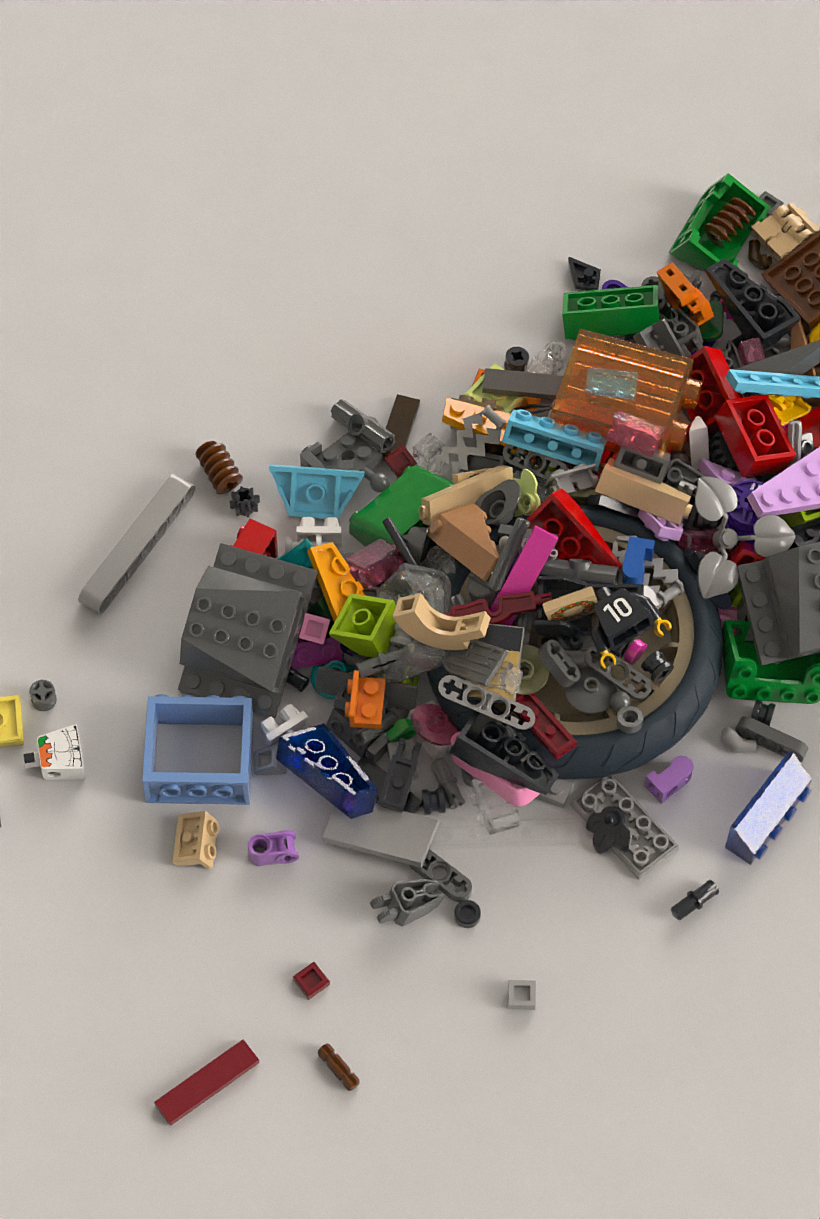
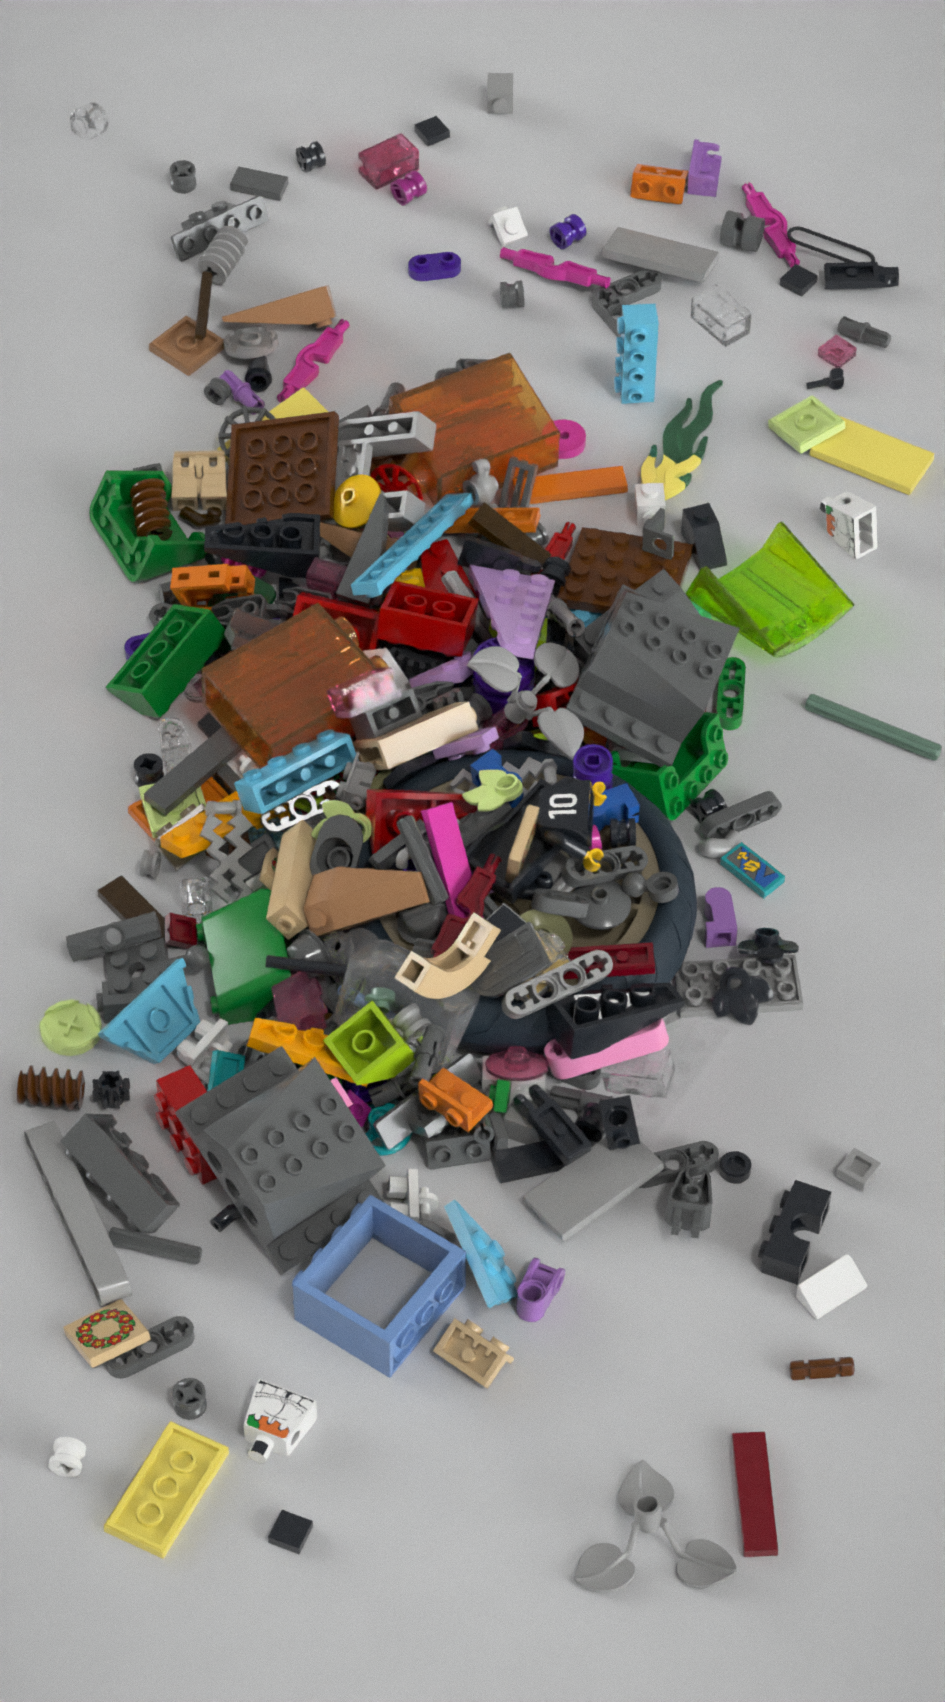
camera: 55 degrees left, 10 degrees down
(56, 617) = (107, 1333): none -> tan tile
(75, 657) = (156, 1333): none -> dark grey beam
(87, 1019) = (646, 1497): none -> light grey plant
(146, 603) = (155, 1245): none -> dark grey axle
(179, 544) = (120, 1171): none -> dark grey wedge
(263, 800) = (484, 1257): none -> medium azure wing
(279, 447) = (70, 1027): none -> yellowish green tile
(311, 980) = (708, 1340): dark red tile -> none
(328, 769) = (500, 1180): clear blue wedge -> none
(410, 1034) = (830, 1287): none -> white slope
(429, 806) = (619, 1112): none -> black brick
(437, 409) = (150, 864): none -> light grey bush
(458, 975) = (802, 1209): none -> black arch
(546, 407) = (261, 749): black piece -> none
(584, 275) = (96, 662): black piece -> none
(611, 383) = (290, 678): clear light blue plate -> none
(614, 564) = (495, 790): none -> yellowish green plate
(667, 822) = (767, 946): none -> black plate
(674, 645) = (618, 804): none -> blue leg
(692, 615) = (594, 764): none -> dark purple wheel
(694, 900) = (862, 974): black axle -> none
(733, 775) = (752, 870): none -> tile
(769, 809) = (816, 860): clear blue slope -> none

